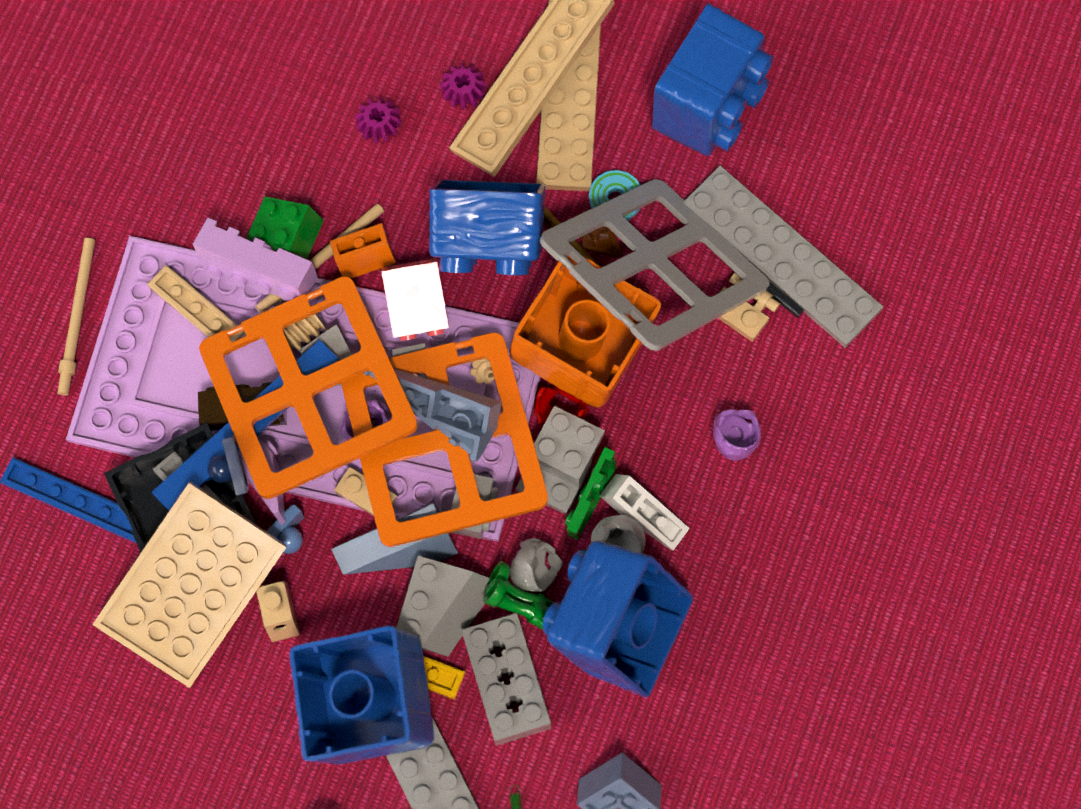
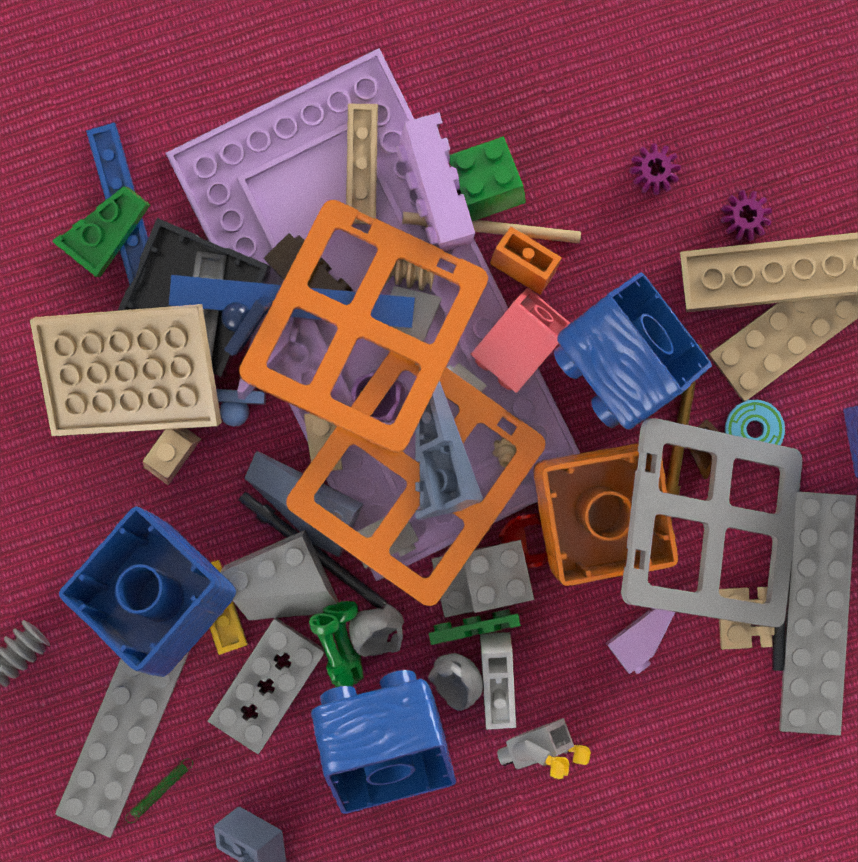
camera: 45 degrees right, 15 degrees up
(67, 365) = (226, 97): tan bar -> none
(80, 525) = (102, 233): none -> green wing
(382, 579) = (265, 514): none -> black bar
(698, 387) = (640, 639): none -> lavender slope
(714, 515) = (541, 747): none -> light grey torso
(734, 435) = (623, 704): medium lavender hair -> none

